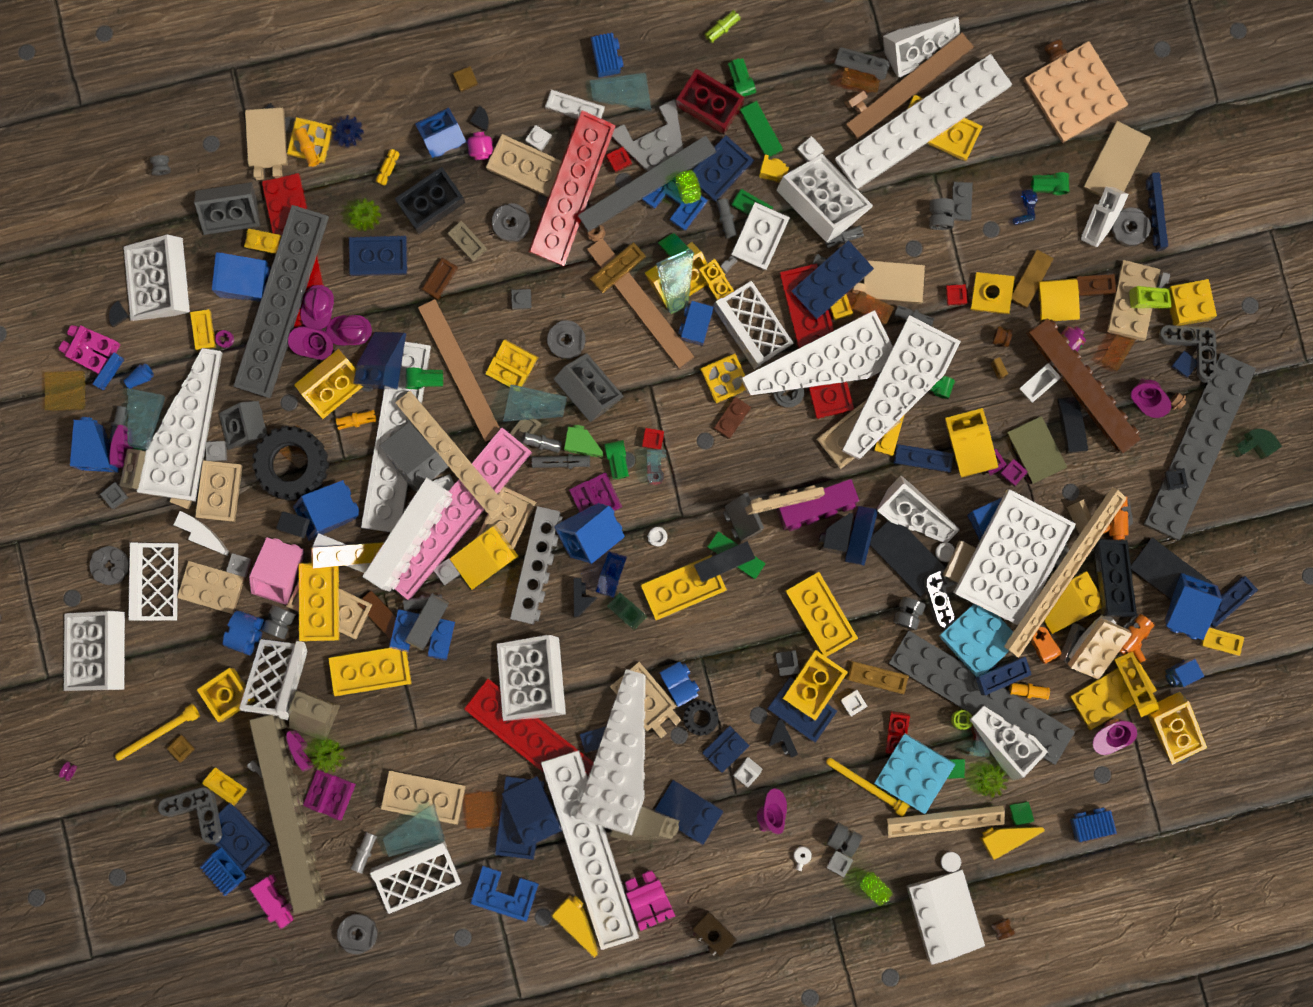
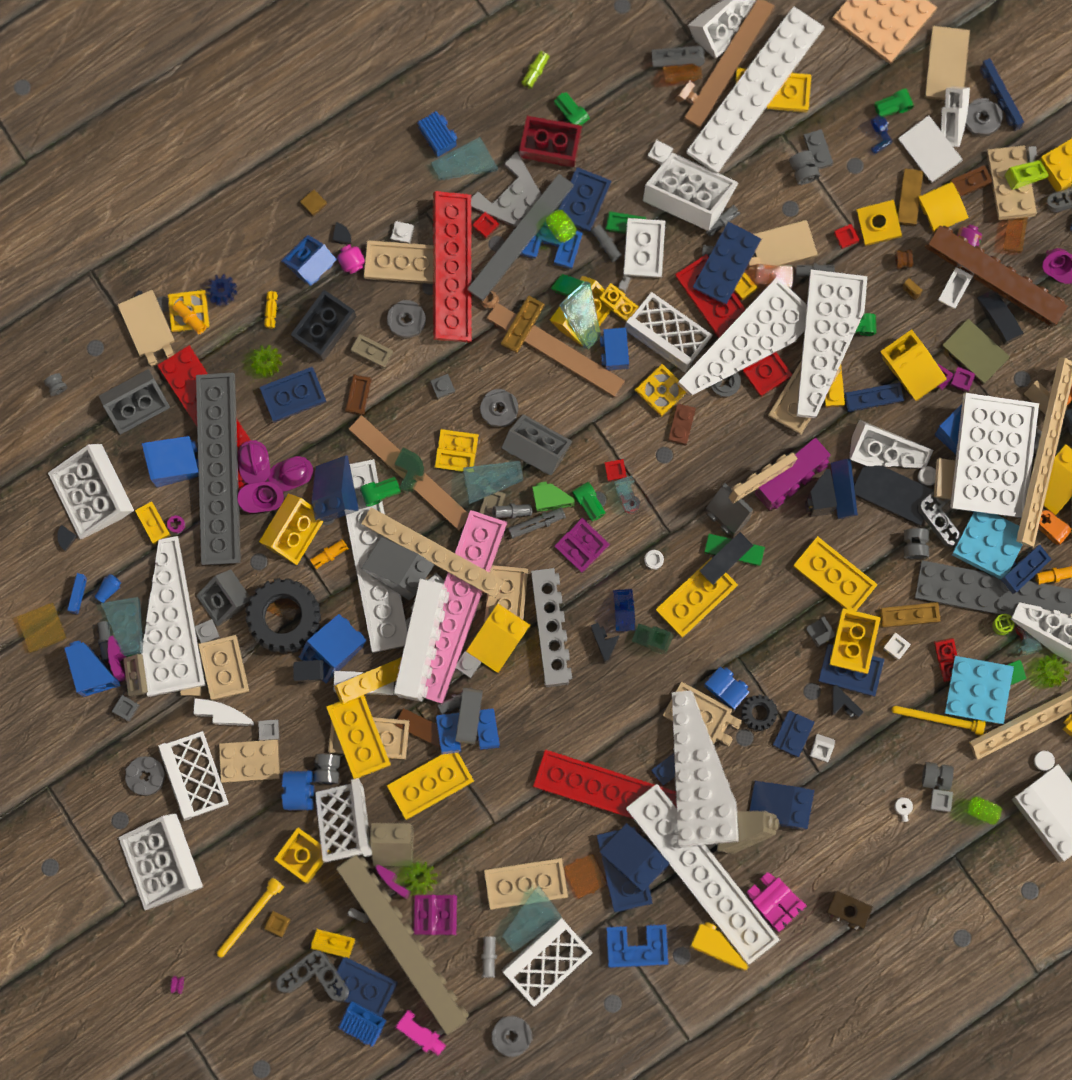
camera: 15 degrees left, 5 degrees down
(84, 344) = (50, 578): dark pink hips -> none
(262, 241) = (179, 419): yellow plate -> none
(276, 570) = (307, 722): bright pink slope -> none
(464, 368) = (412, 465): none -> clear green brick
(531, 678) = (586, 733): white slope -> none
(571, 105) = (422, 191): white tile -> none
(590, 533) = (590, 577): blue slope -> none
(761, 129) = (607, 151): green tile -> none
(773, 169) = (633, 182): yellow brick -> none
(773, 813) = (861, 776): magenta piece -> none
(1068, 239) = (930, 149): none -> white tile

